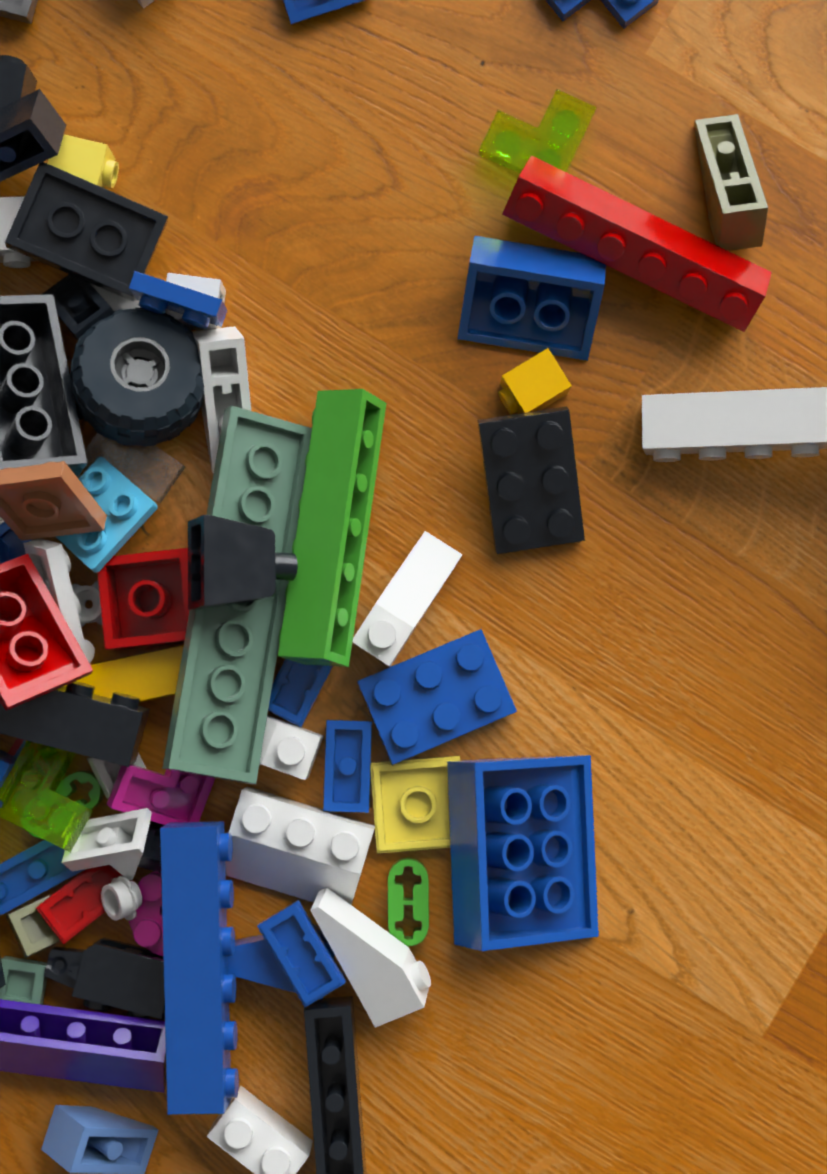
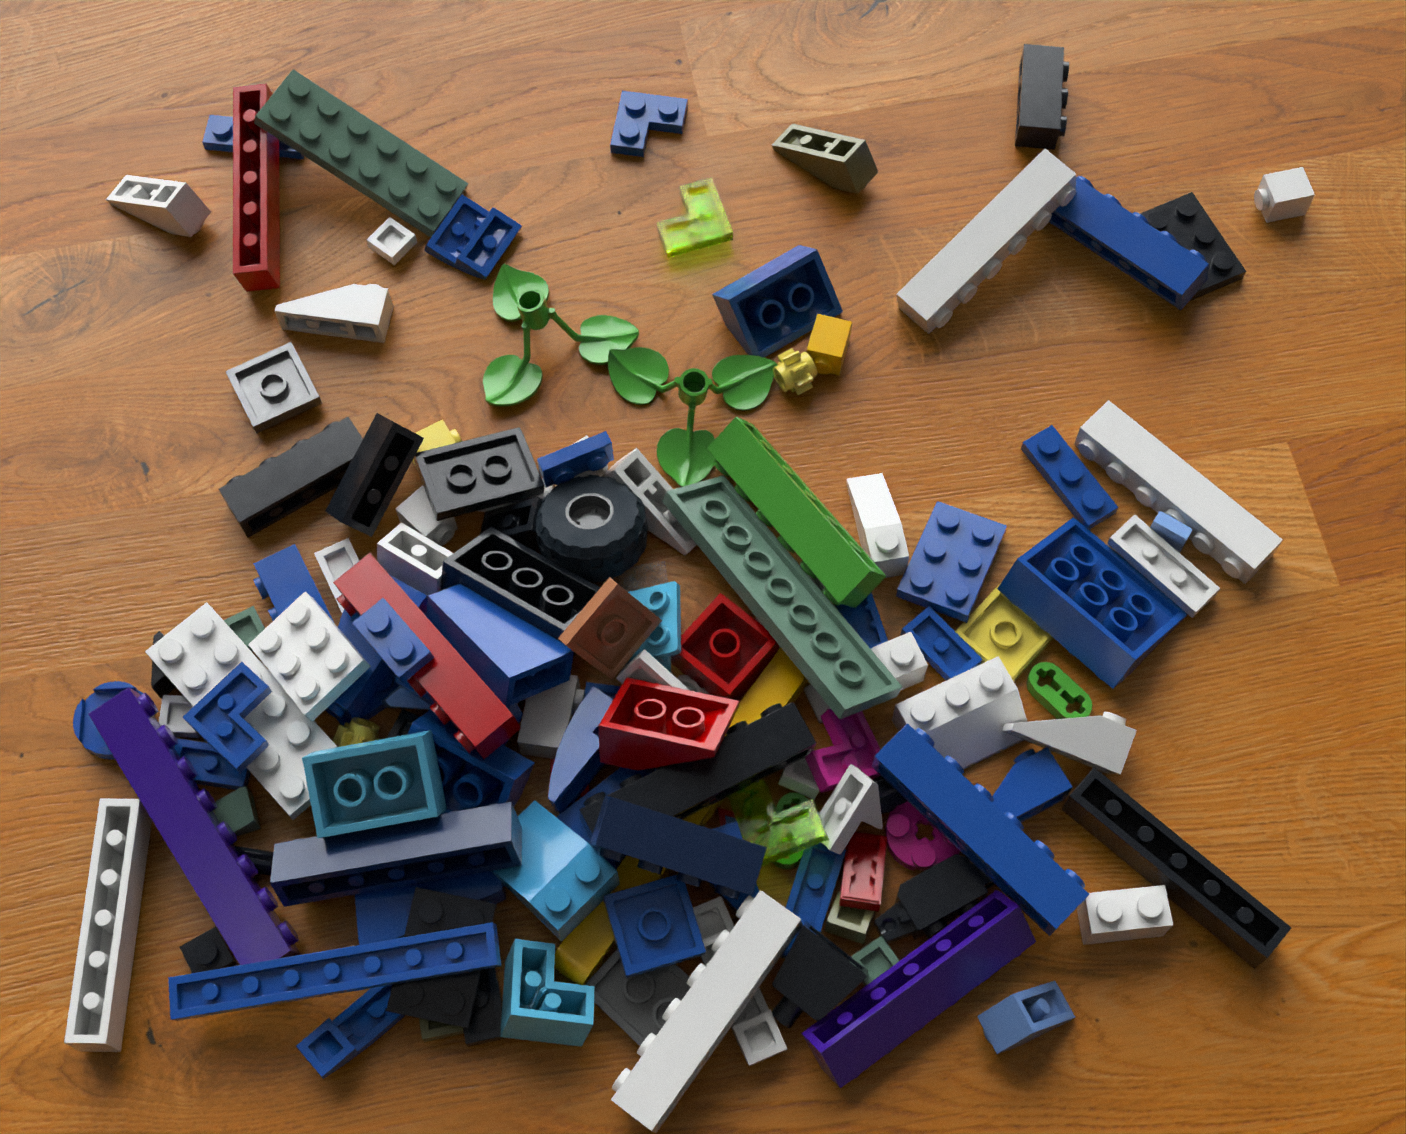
camera: 45 degrees left, 20 degrees down
(121, 898) = (884, 850): white plate -> none
(233, 563) = (760, 565): black torso -> none
(301, 953) = (1032, 763): blue plate -> none
(304, 69) = (524, 297): none -> bright green plant
(344, 254) = (681, 452): none -> bright green plant
(476, 384) = (795, 371): none -> light yellow gear
(531, 480) = (881, 393): black plate -> none
(619, 876) = (1163, 565): none -> white plate
(625, 715) = (1069, 477): none -> blue plate
(637, 243) = (809, 222): red brick -> none
(656, 853) = (1171, 530): none -> light blue tile
(703, 823) = (1174, 487): none -> white brick

